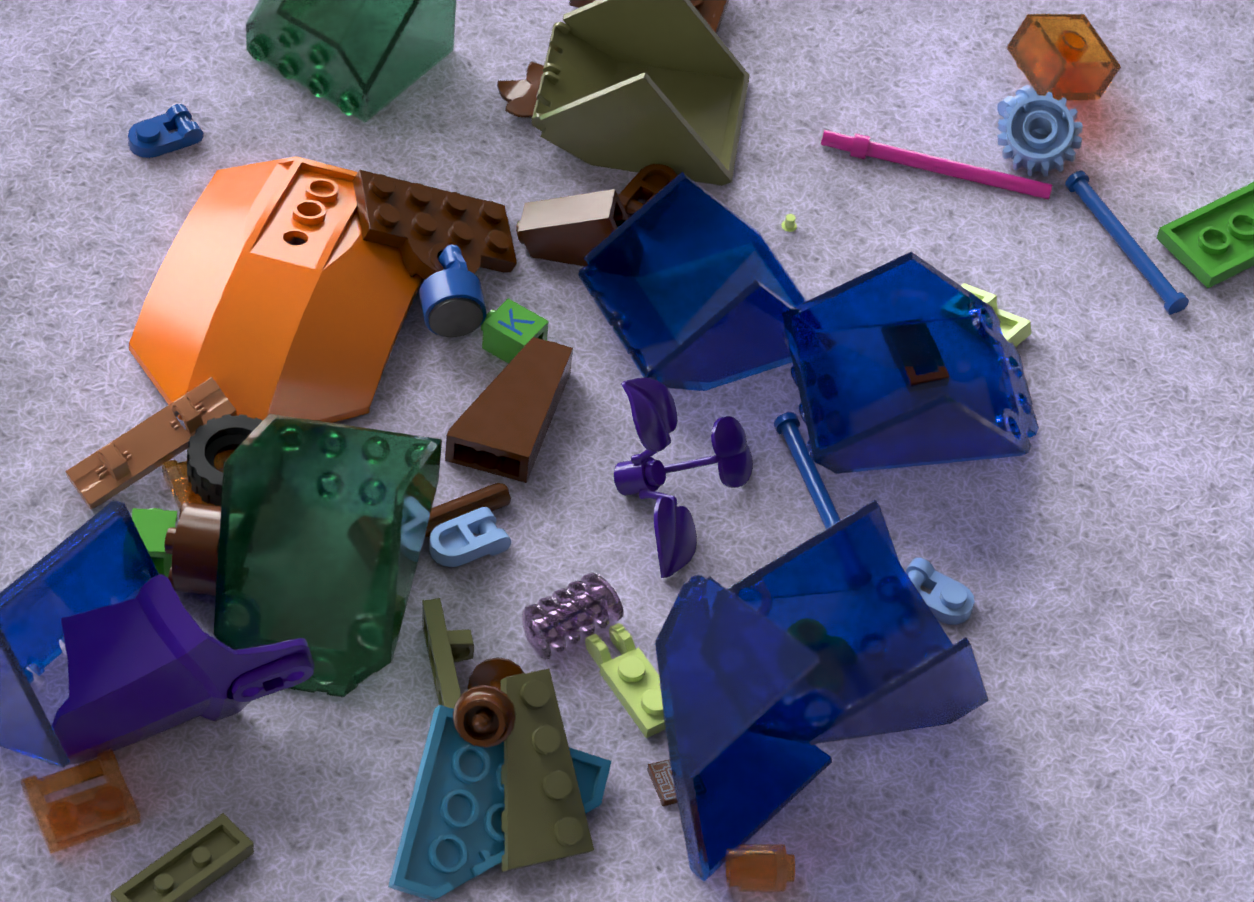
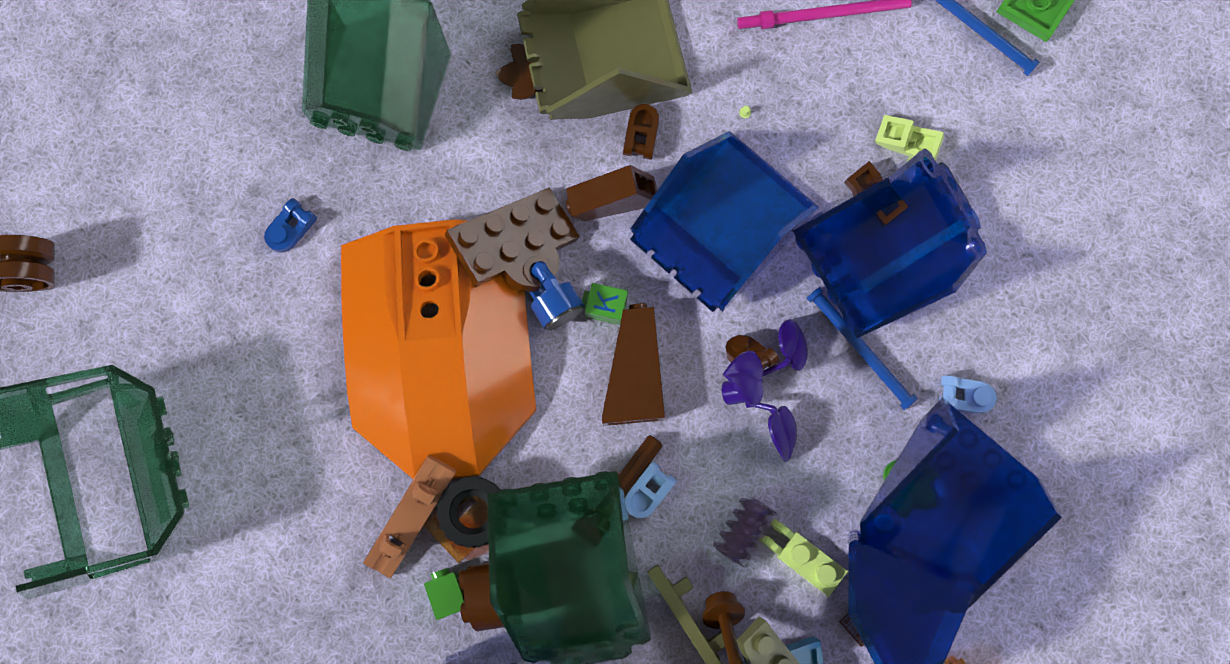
camera: 10 degrees left, 30 degrees up
(683, 445) = (743, 343): none -> reddish brown plate

